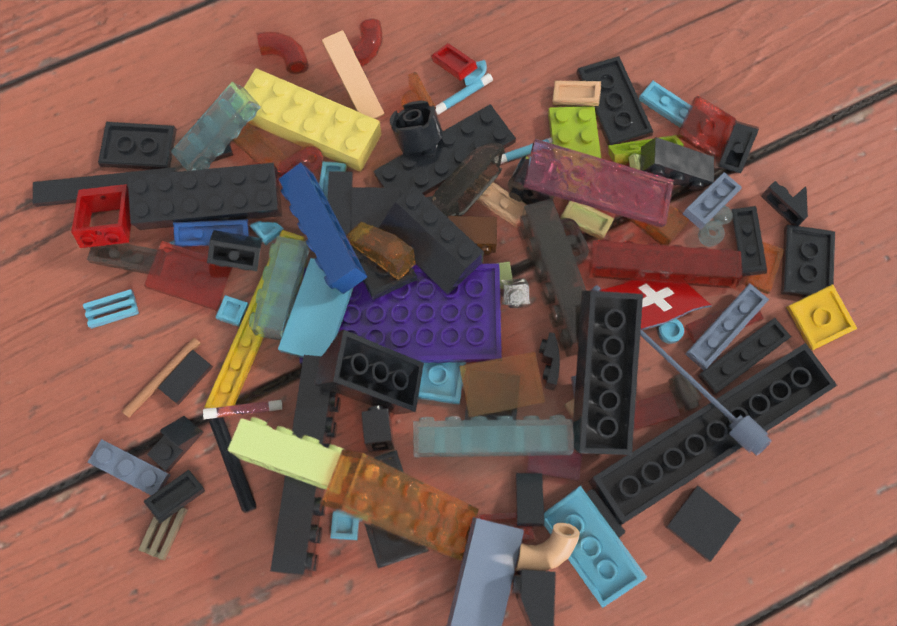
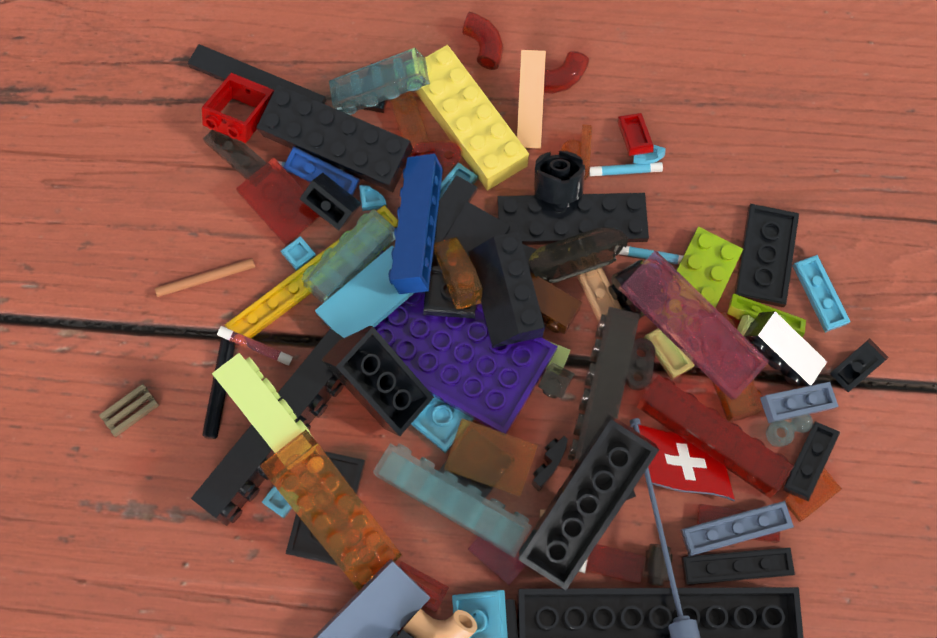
camera: 30 degrees right, 0 degrees up
(91, 313) = (178, 188): medium azure tile -> none
(128, 468) = (132, 341): sand blue plate -> none
(137, 146) = (305, 59): black tile -> none
(174, 496) = (154, 387): black tile -> none
(175, 443) = (184, 340): black slope -> none
(185, 377) = (224, 289): black tile -> none
(377, 429) = (357, 432): black brick -> none
(529, 499) = (453, 575): black tile -> none
(577, 93) = (734, 227): light nougat tile -> none
(671, 331) = (682, 502): medium azure tile -> none
(706, 127) = (840, 329): clear red tile -> none
(790, 208) = (874, 453): black slope -> none
(807, 260) = (859, 515): black tile -> none
(821, 317) = (836, 574): yellow tile -> none

